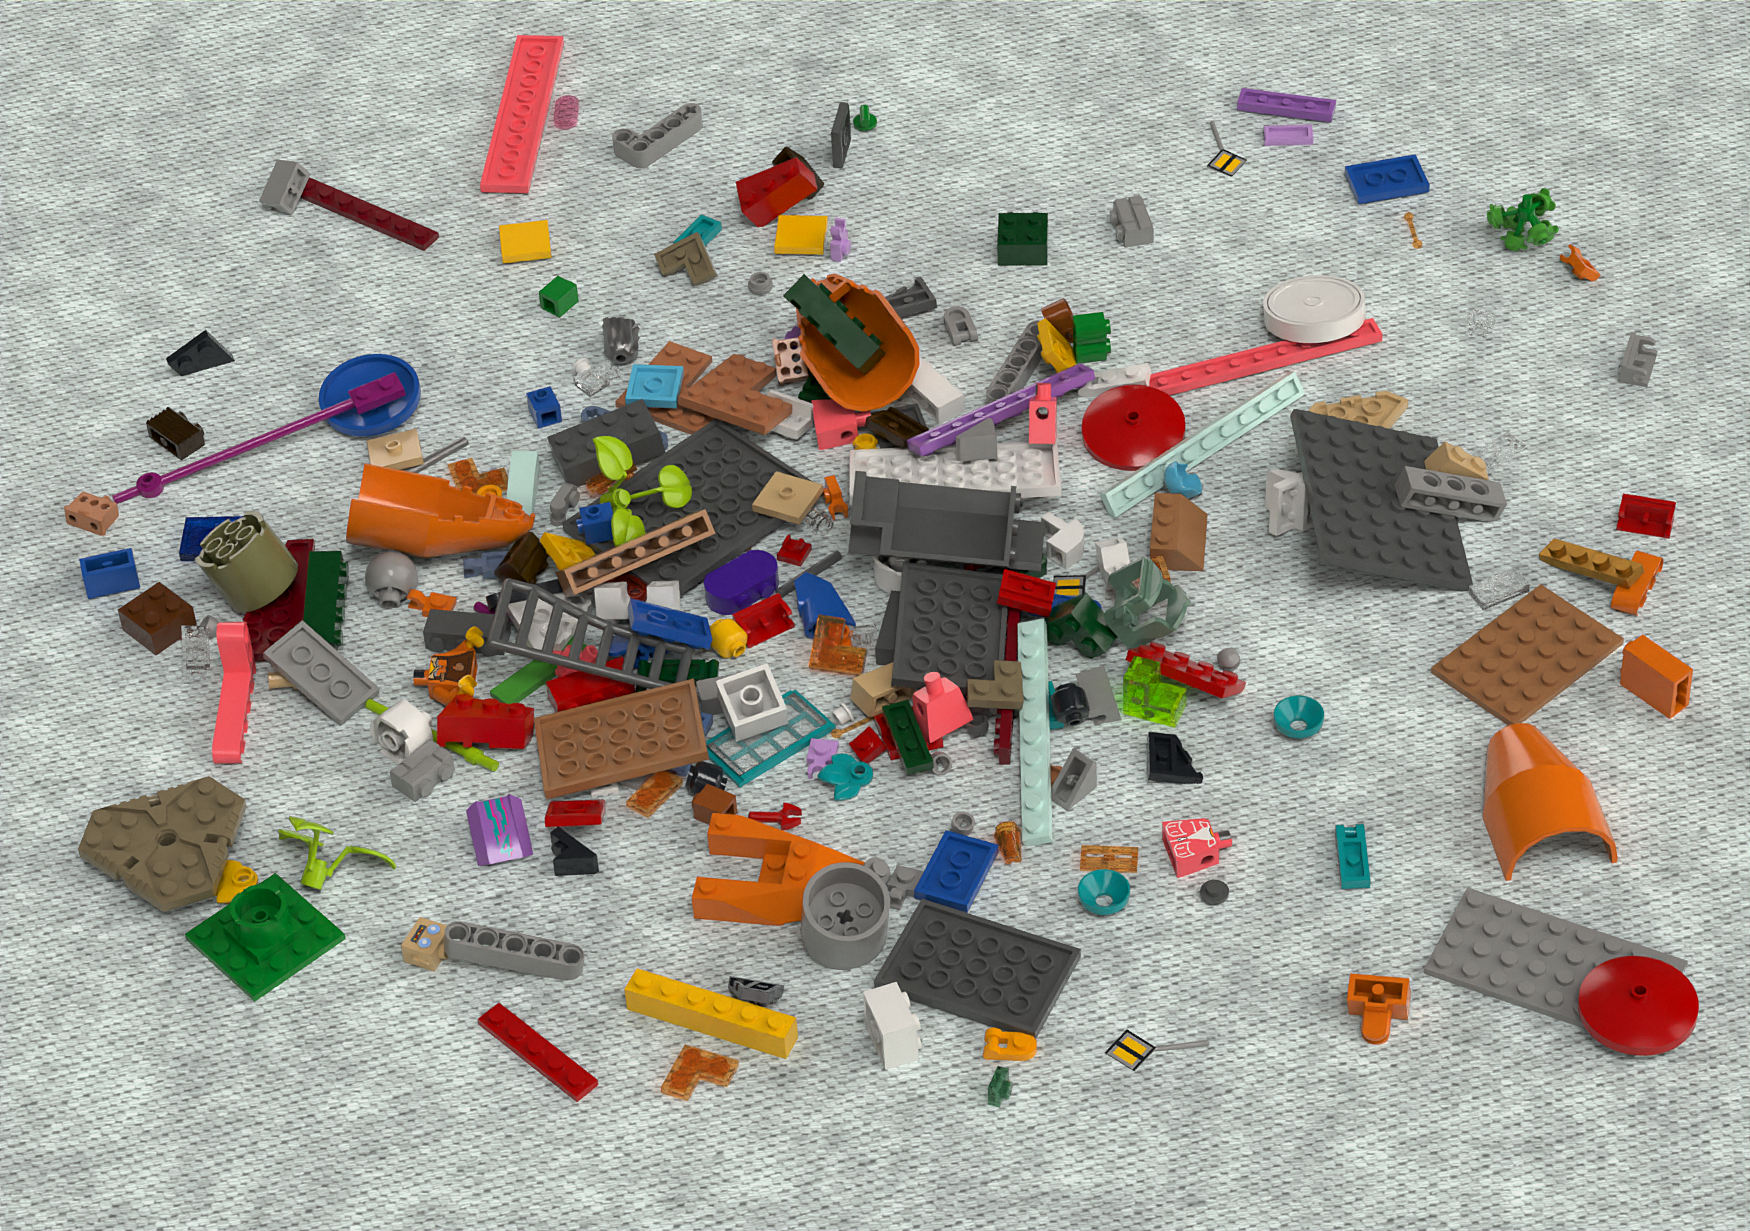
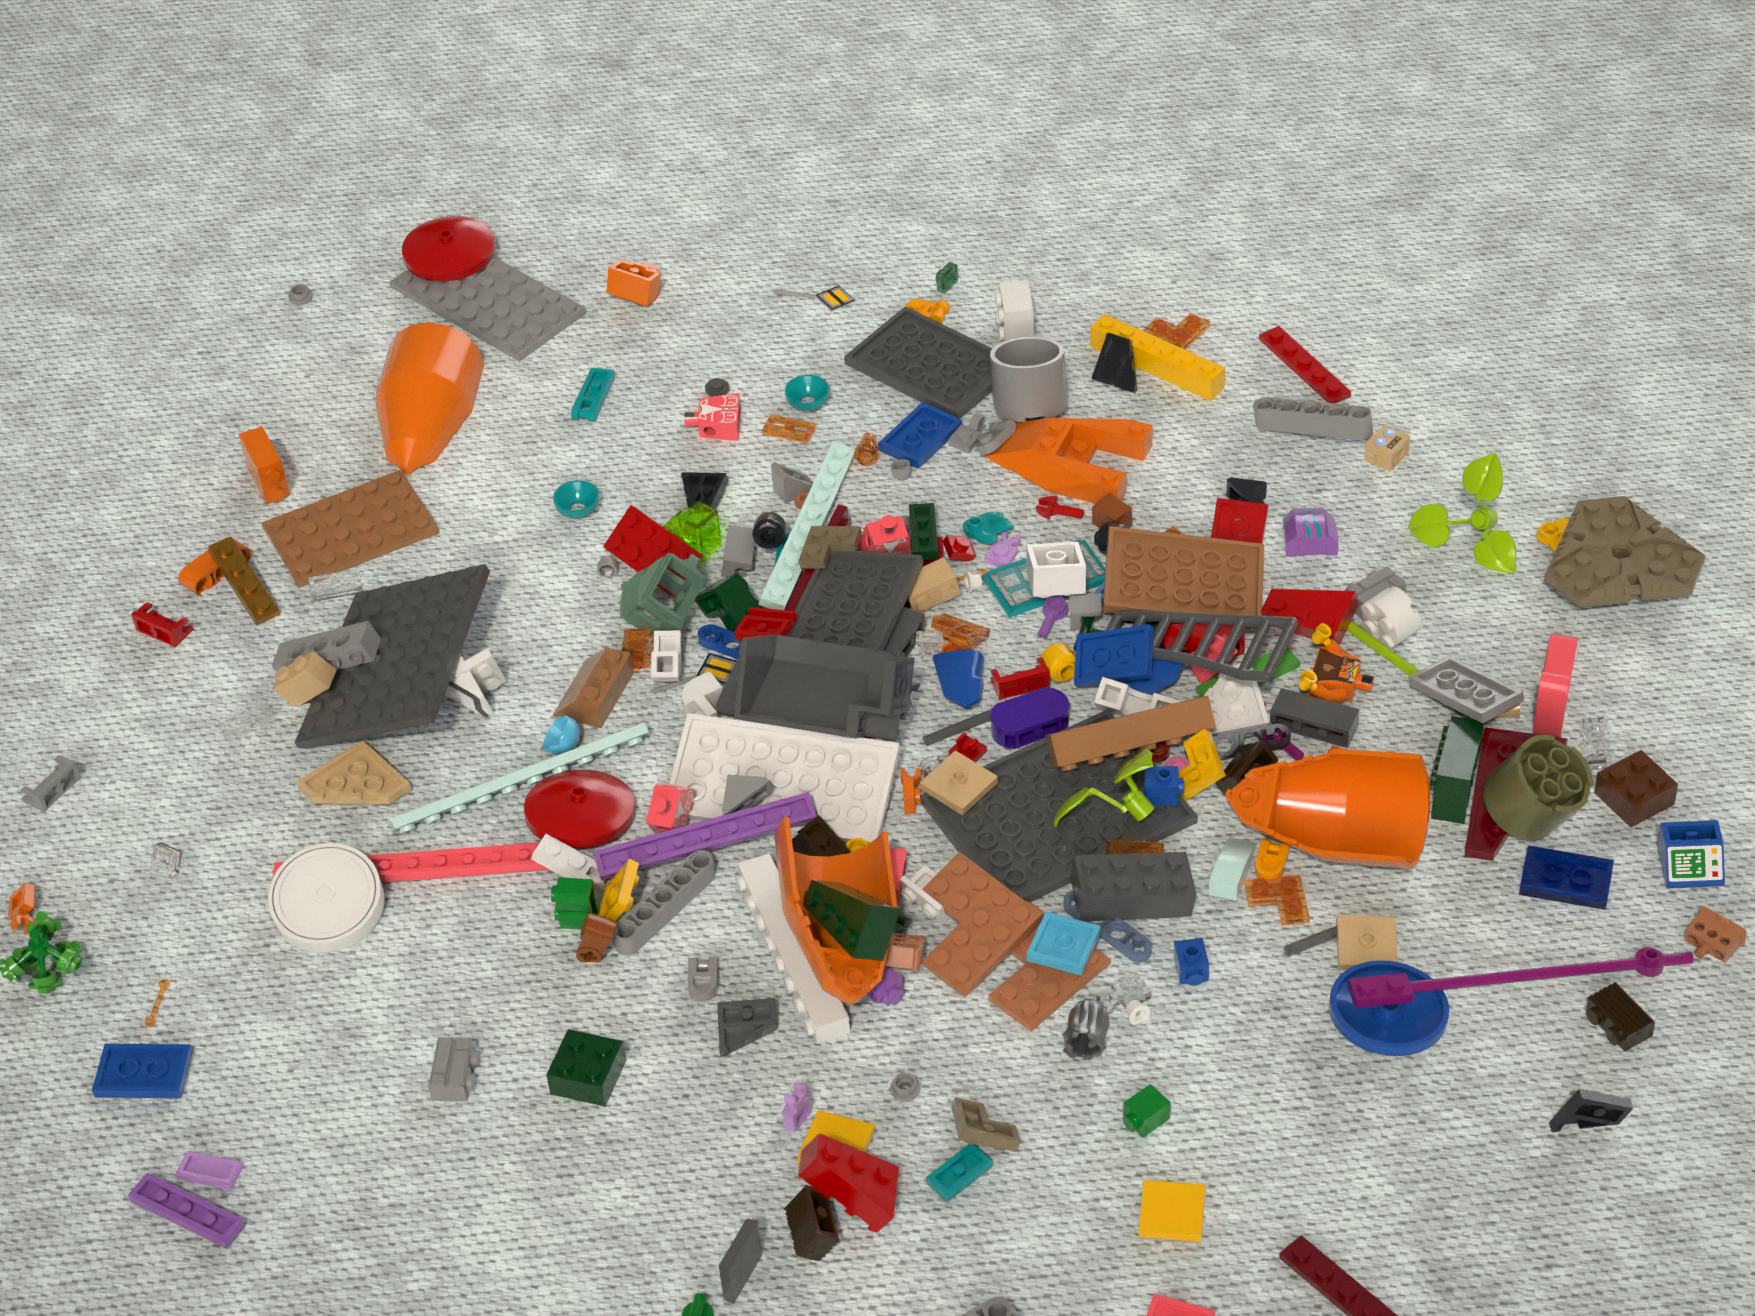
camera: 165 degrees left, 0 degrees up
(273, 940) = (1538, 487): green piece -> none
(562, 501) = (1194, 838): light grey plate -> none
(1224, 161) = (297, 1153): piece -> none

